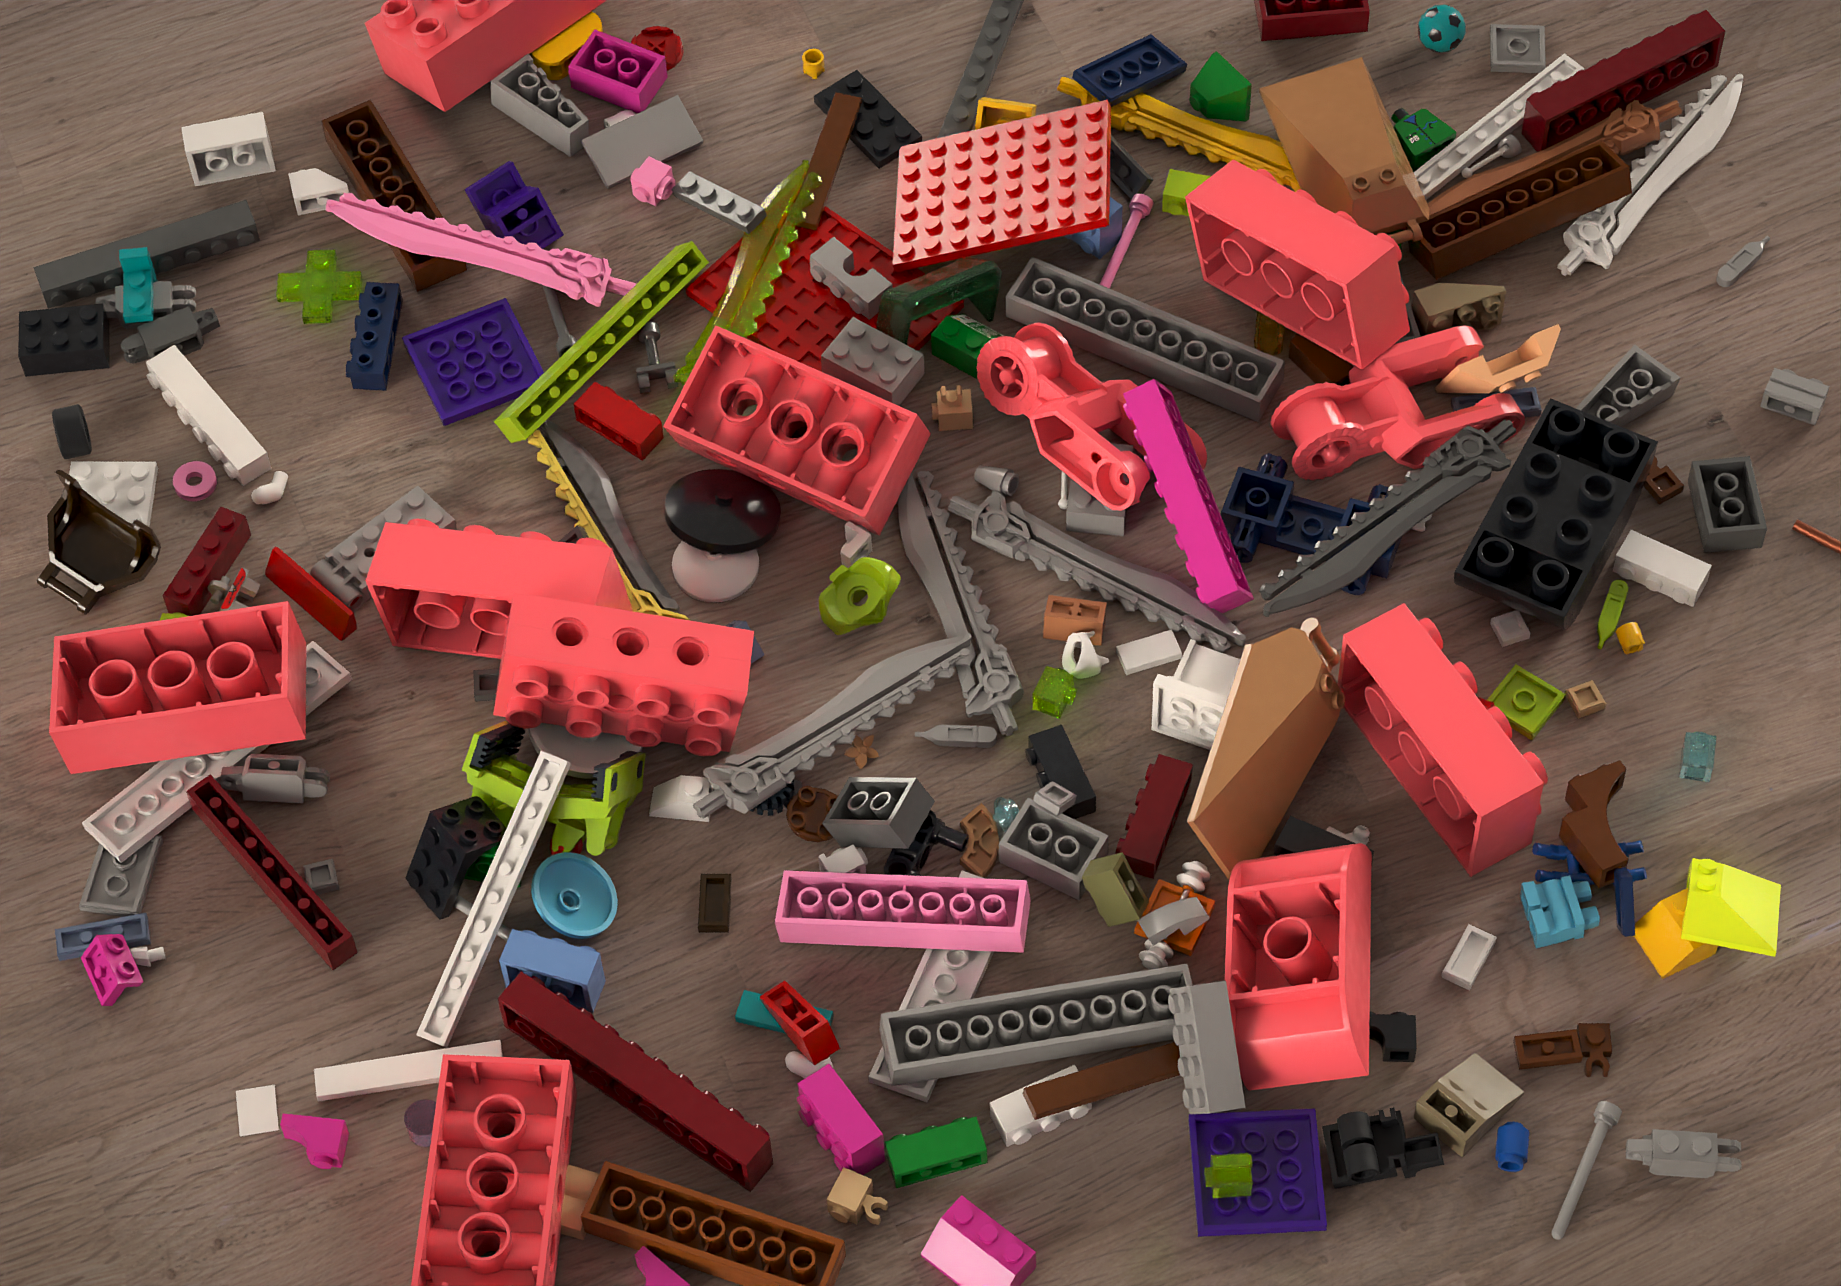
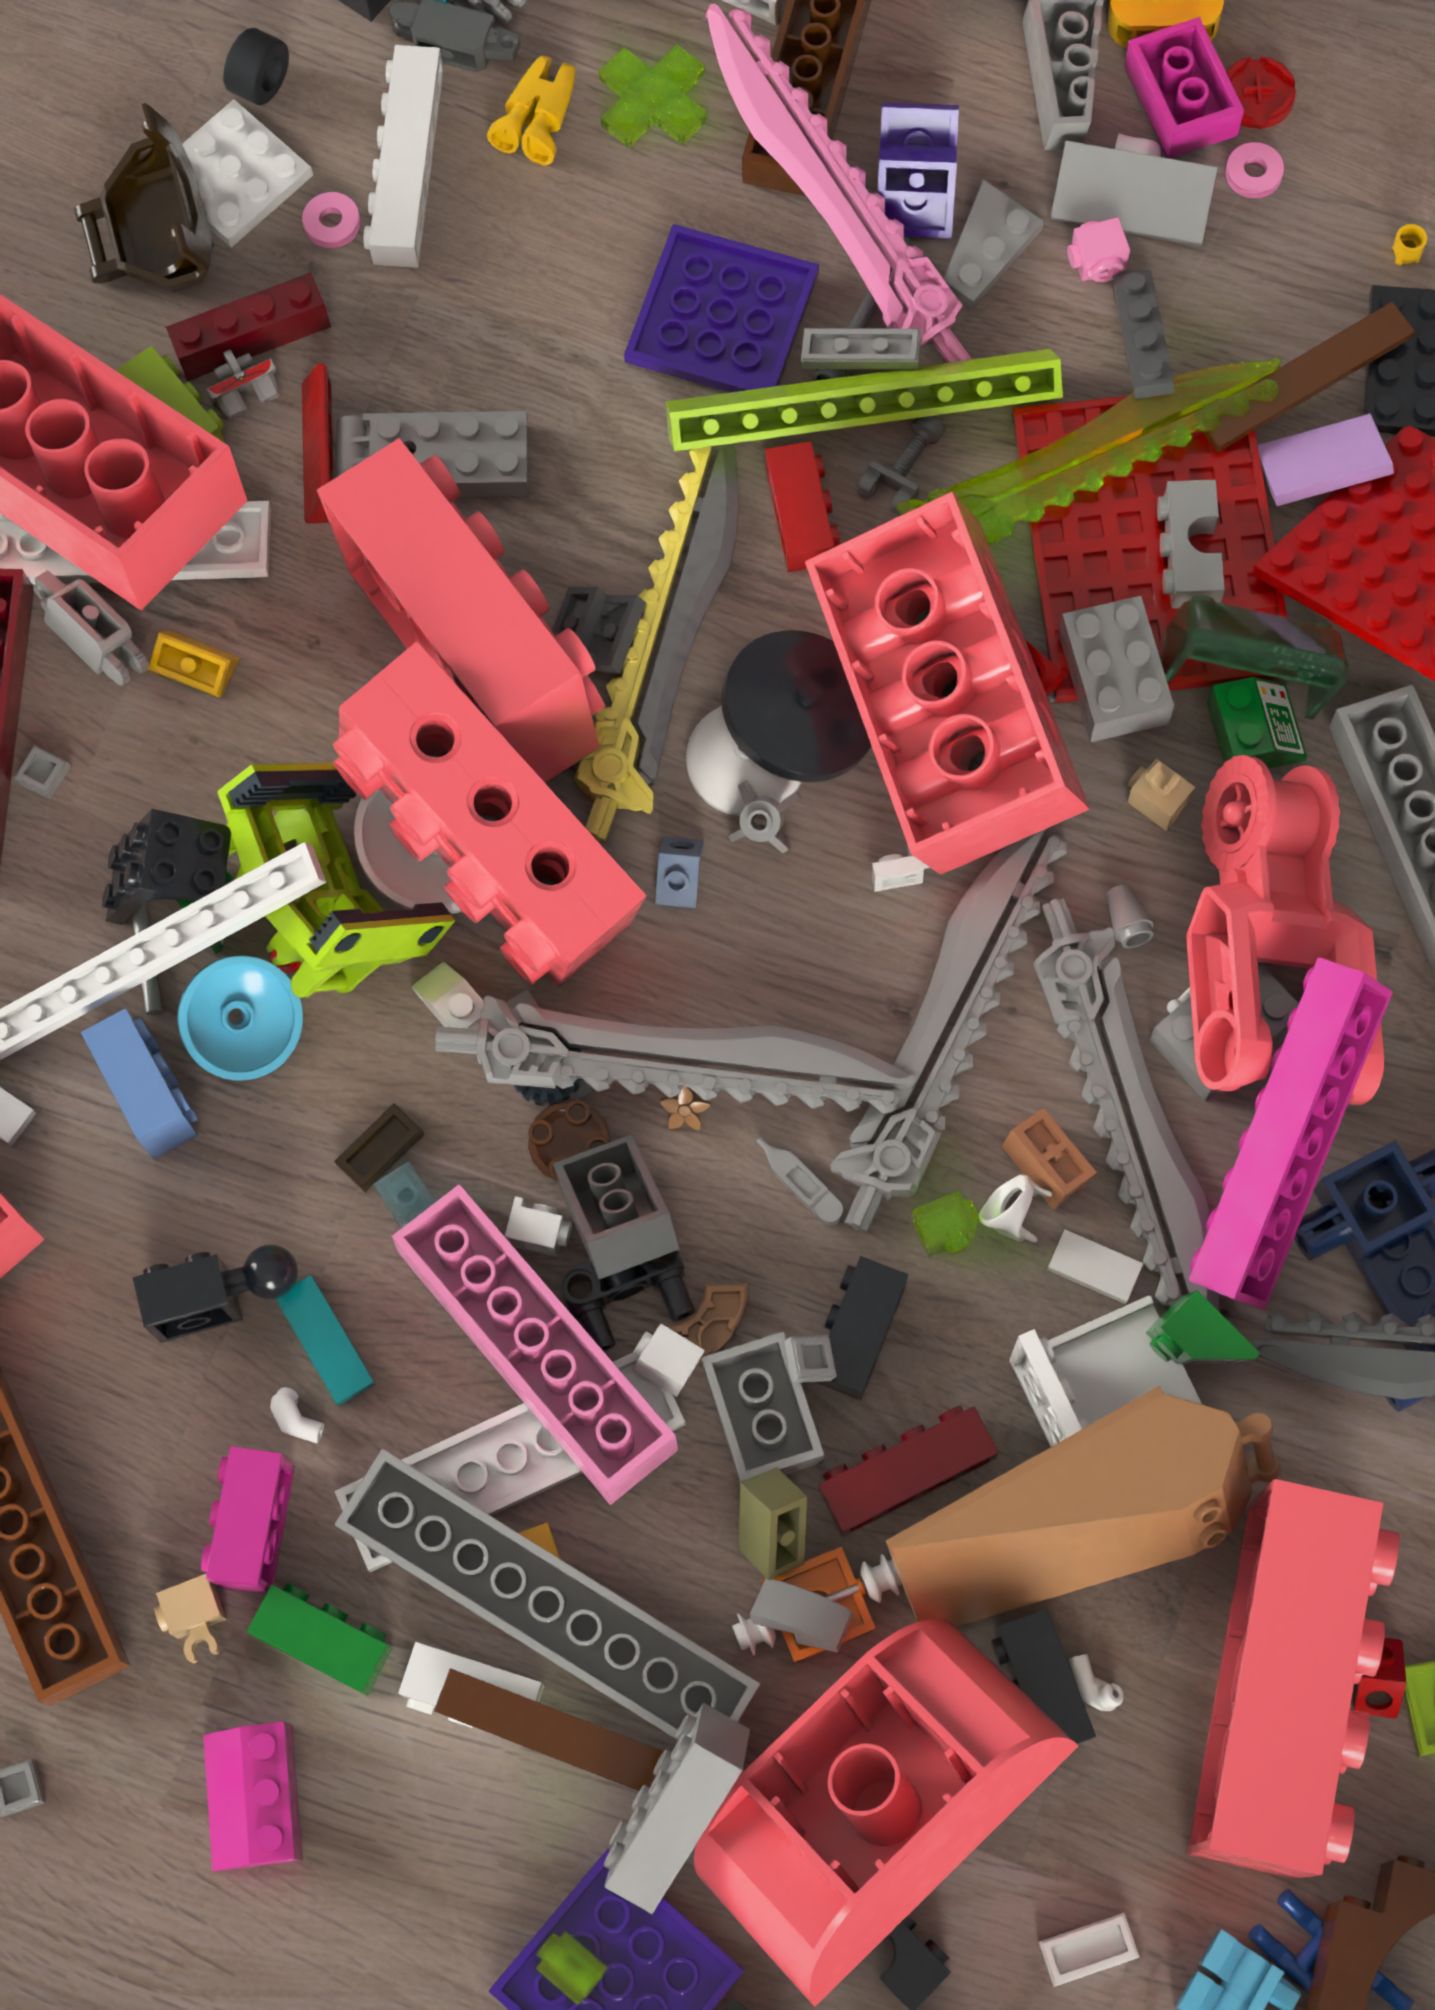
camera: 45 degrees right, 15 degrees up
(259, 336) = (540, 107): none -> yellow piece
(271, 492) = (390, 295): white arm -> none
(352, 756) = (192, 662): none -> yellow slope
(375, 336) = (650, 200): dark blue brick -> none
(575, 317) = (861, 348): none -> light grey tile
(586, 220) = (989, 243): none -> light grey wing
(637, 1081) = (101, 1285): dark red brick -> none
(690, 77) = (1254, 154): none -> bright pink piece
(700, 1033) = (205, 1292): none -> black brick
(753, 583) = (771, 810): none -> light grey brick
(757, 910) = (404, 1194): none -> clear light blue brick
(801, 1022) = (320, 1368): red slope -> none
(850, 586) = (872, 928): lime piece -> none
(876, 191) = (1324, 459): none -> lavender tile
(980, 860) = (666, 1359): none -> white brick
(1005, 812) = (757, 1321): clear light blue hat -> none
(1234, 625) = (1198, 1334): none -> green slope

